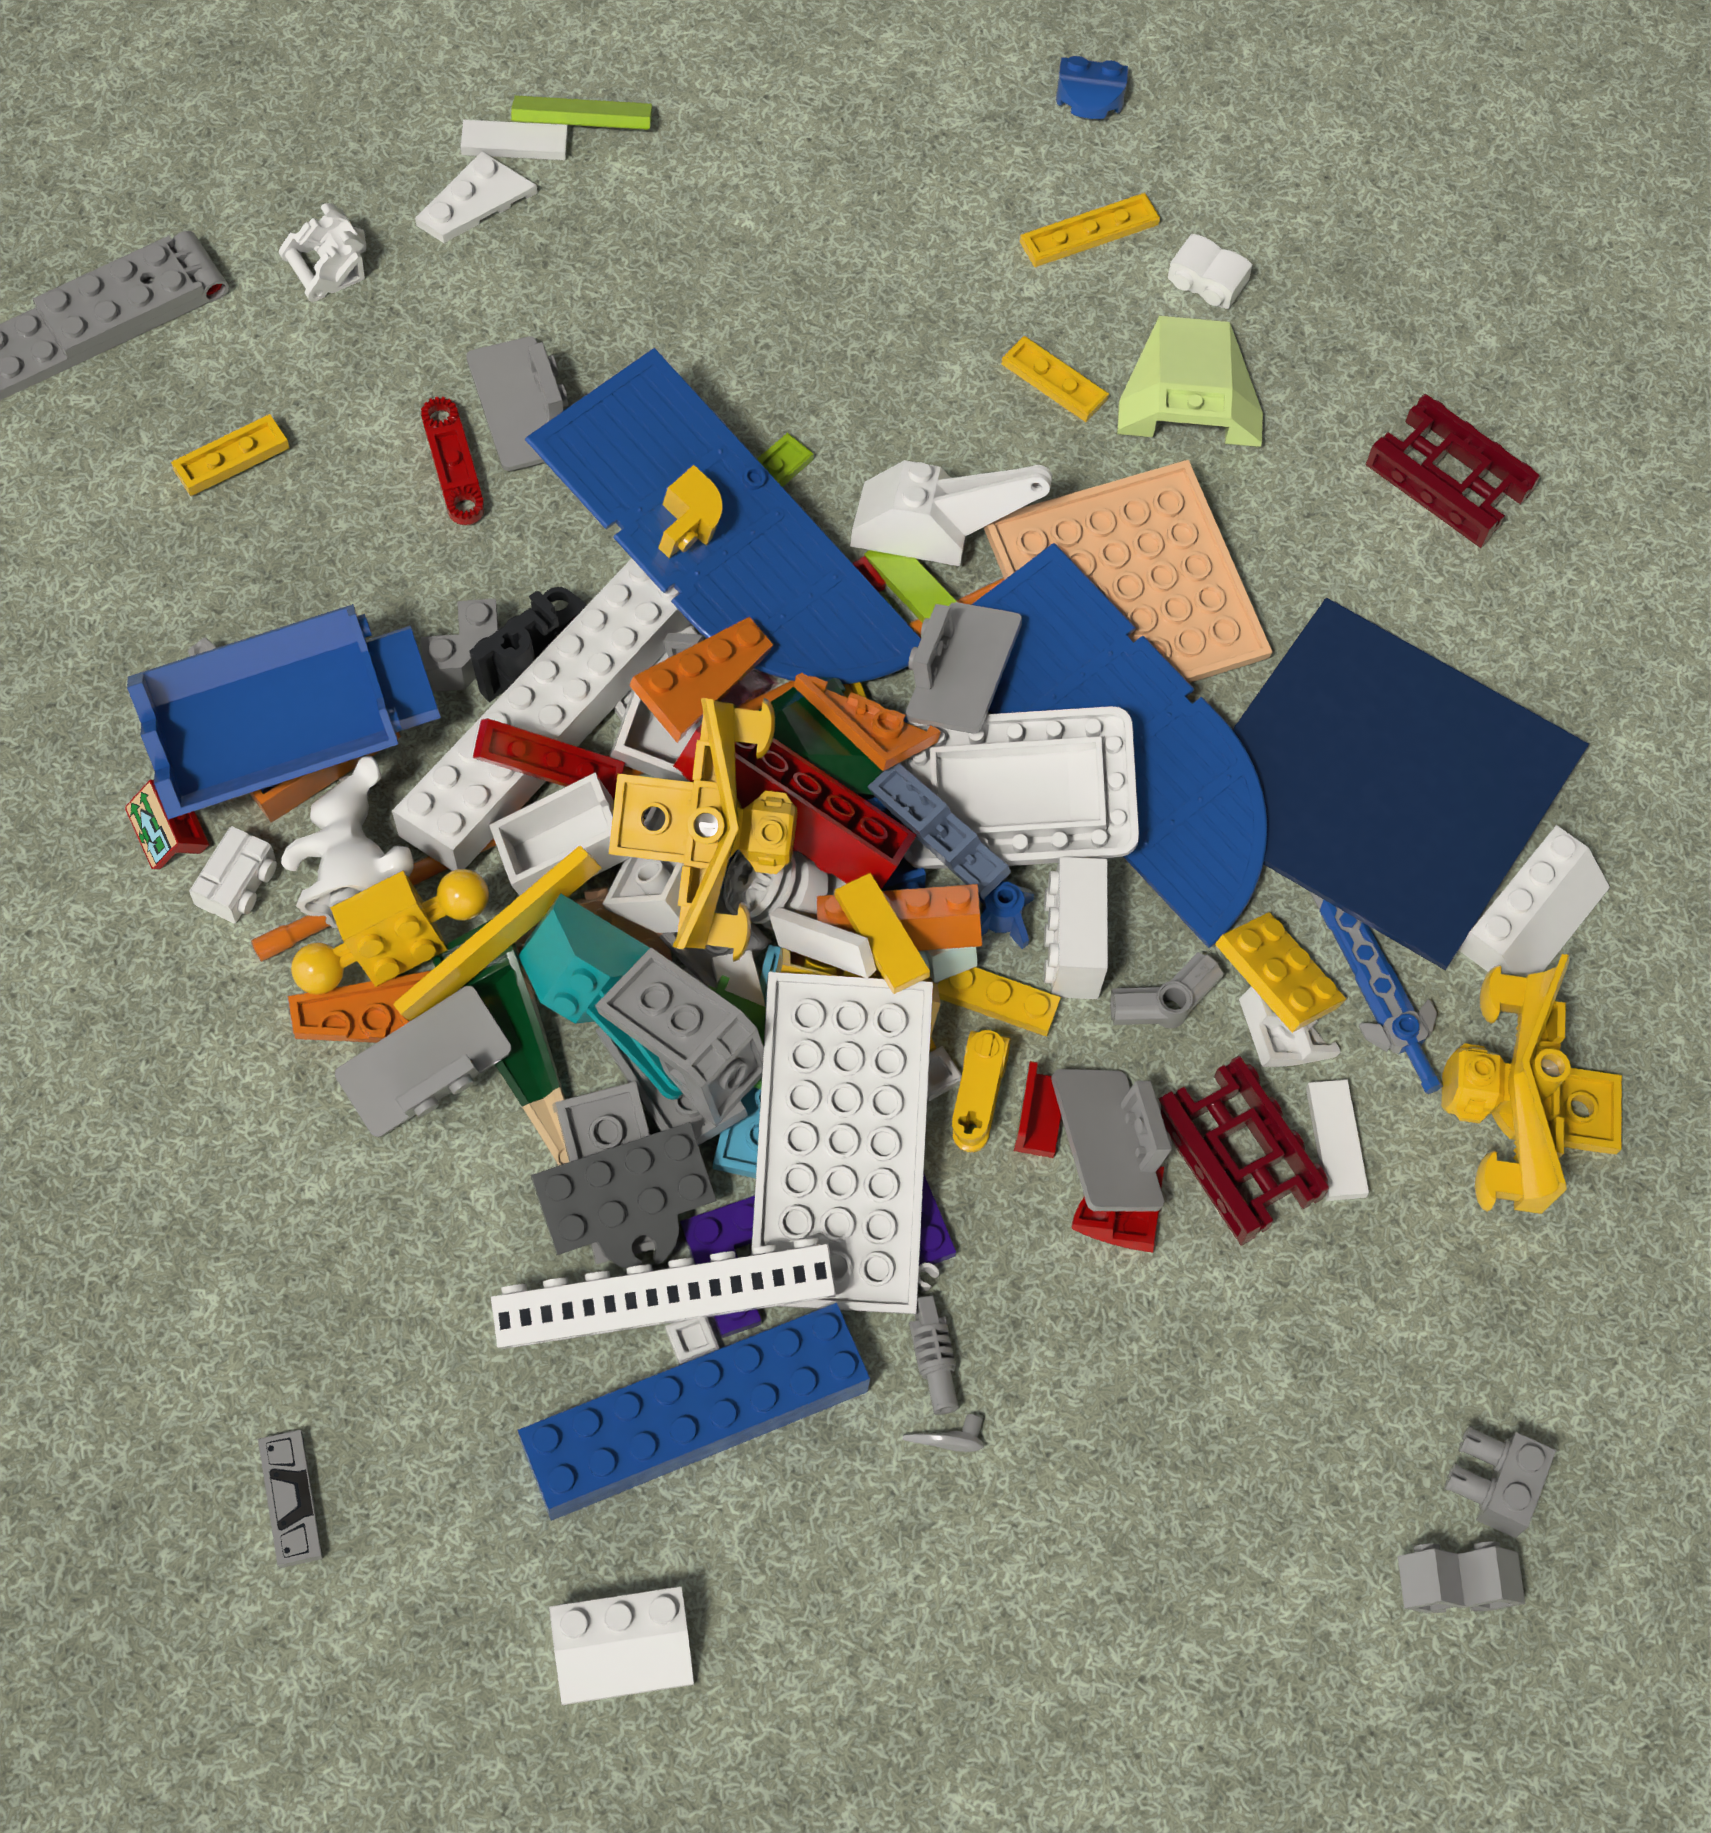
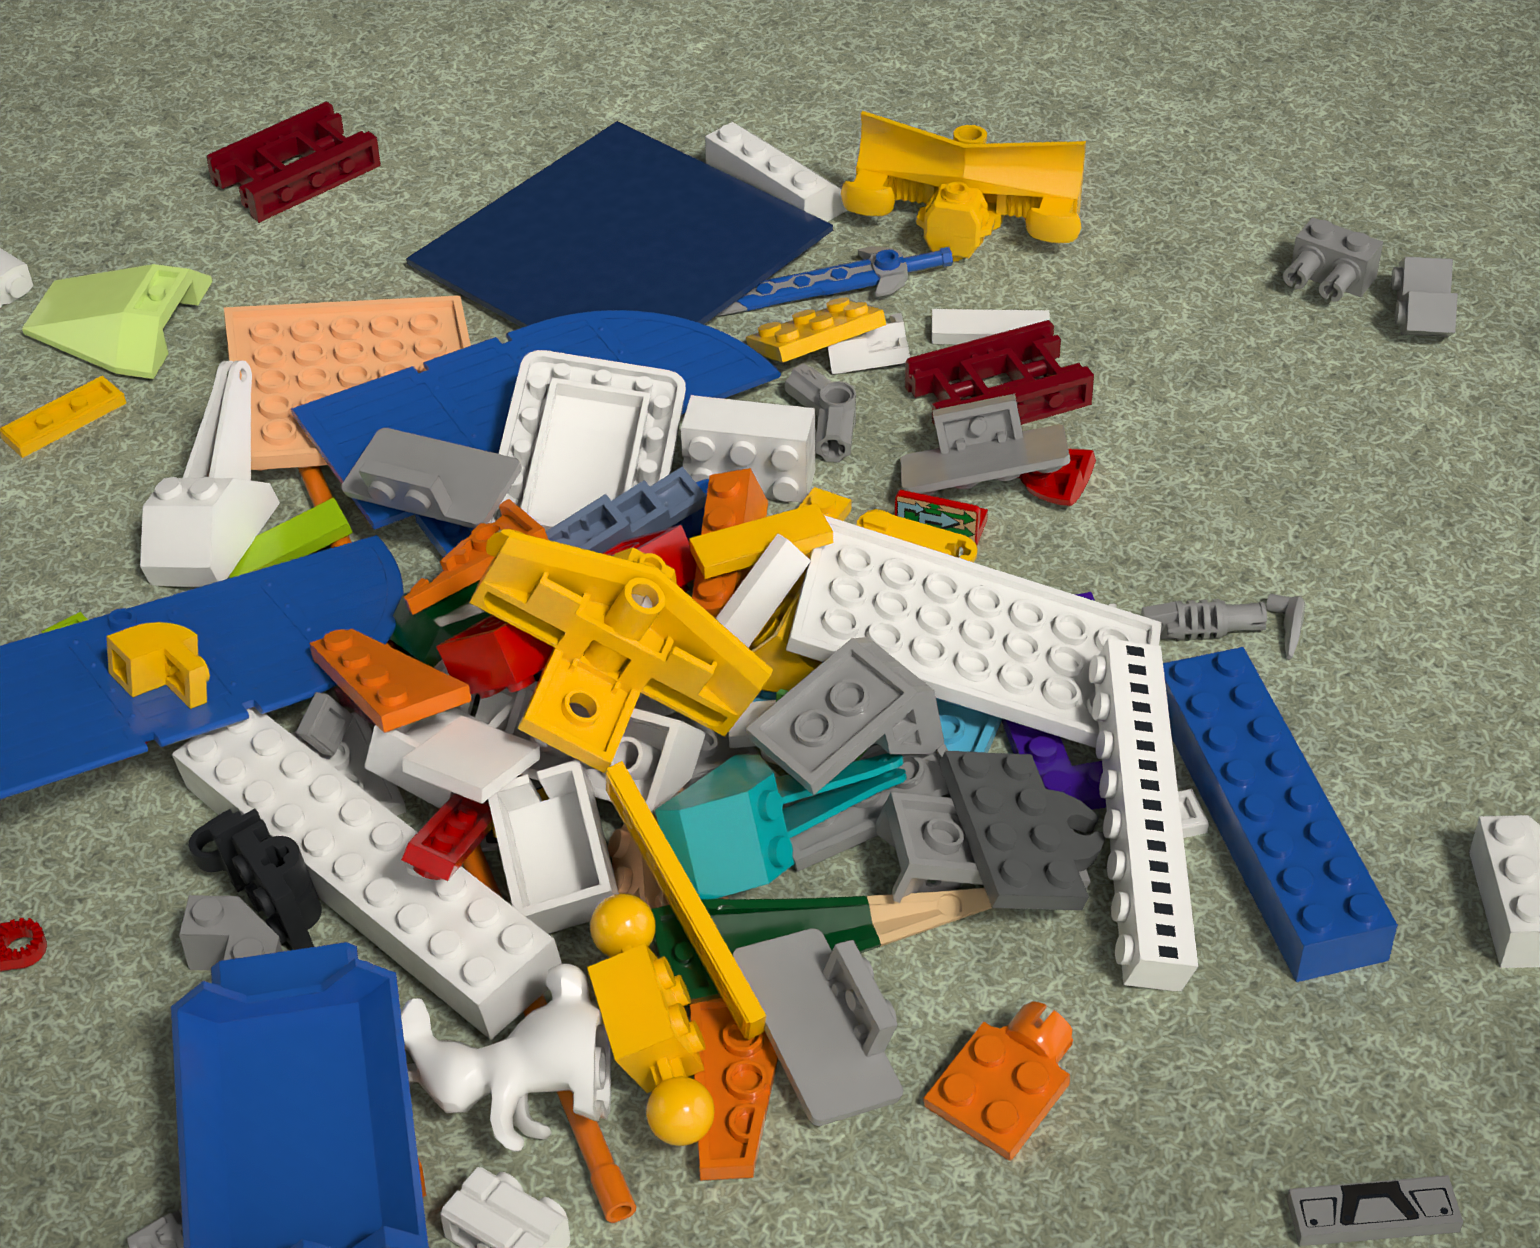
camera: 75 degrees left, 20 degrees down
(390, 1210) = (1005, 1079): none -> orange plate
(610, 747) = (471, 759): none -> white tile

